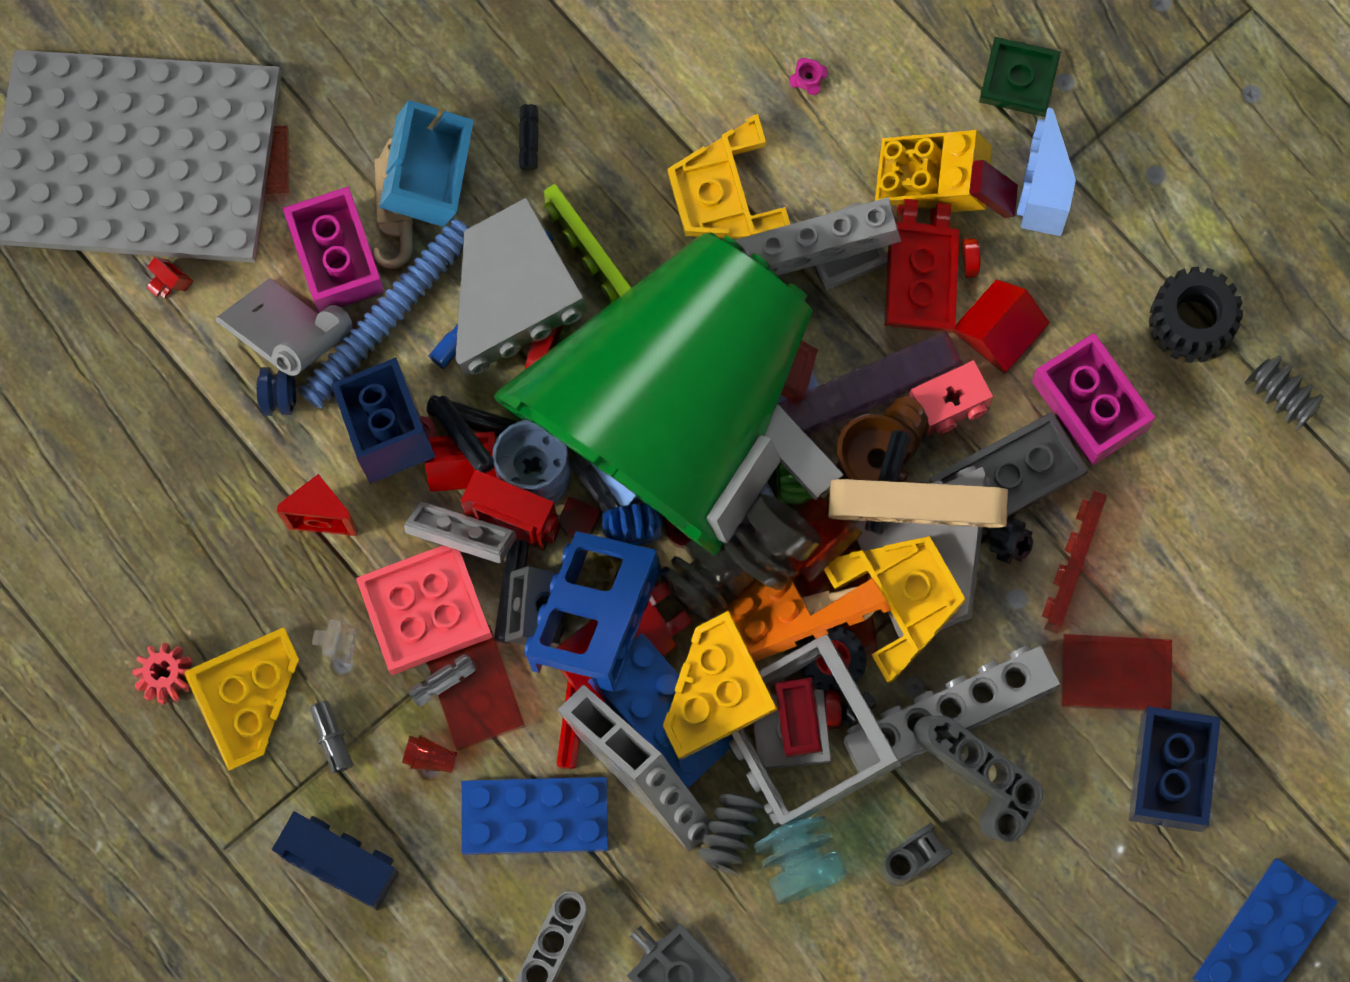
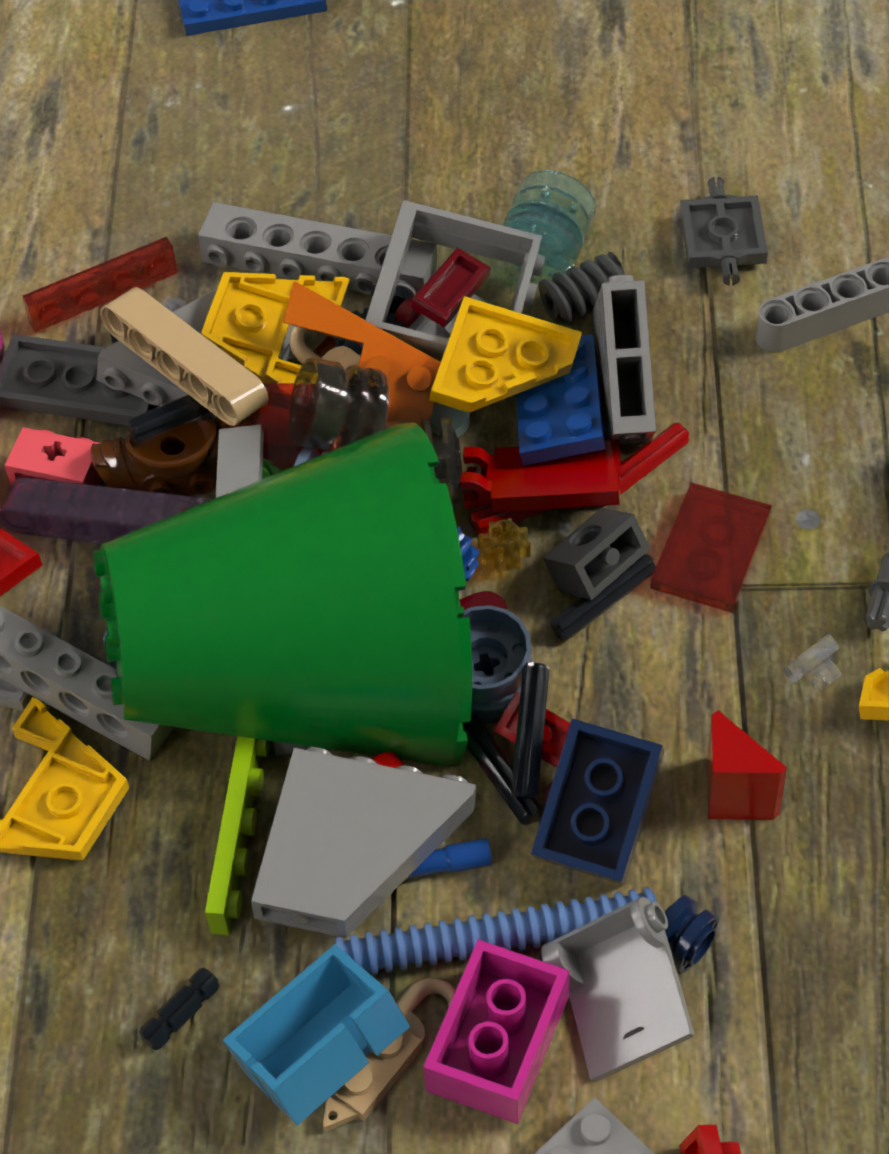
camera: 140 degrees left, 20 degrees down
(423, 608) = (702, 630): coral plate -> none
(427, 755) = (806, 519): clear red cone -> none
(442, 680) = (738, 557): dark grey axle -> none
(460, 532) = (609, 668): light grey tile -> none
(511, 508) = (552, 637): red window -> none
(534, 816) = (745, 418): blue plate -> none
(616, 610) = (533, 459): blue window -> none
(743, 488) = (319, 447): light grey tile -> none
(920, 852) = (455, 185): dark grey piece -> none
(976, 770) = (336, 179): dark grey beam -> none
(1116, 672) = (155, 202): clear red tile -> none
(1174, 769) = (192, 105): dark blue brick -> none

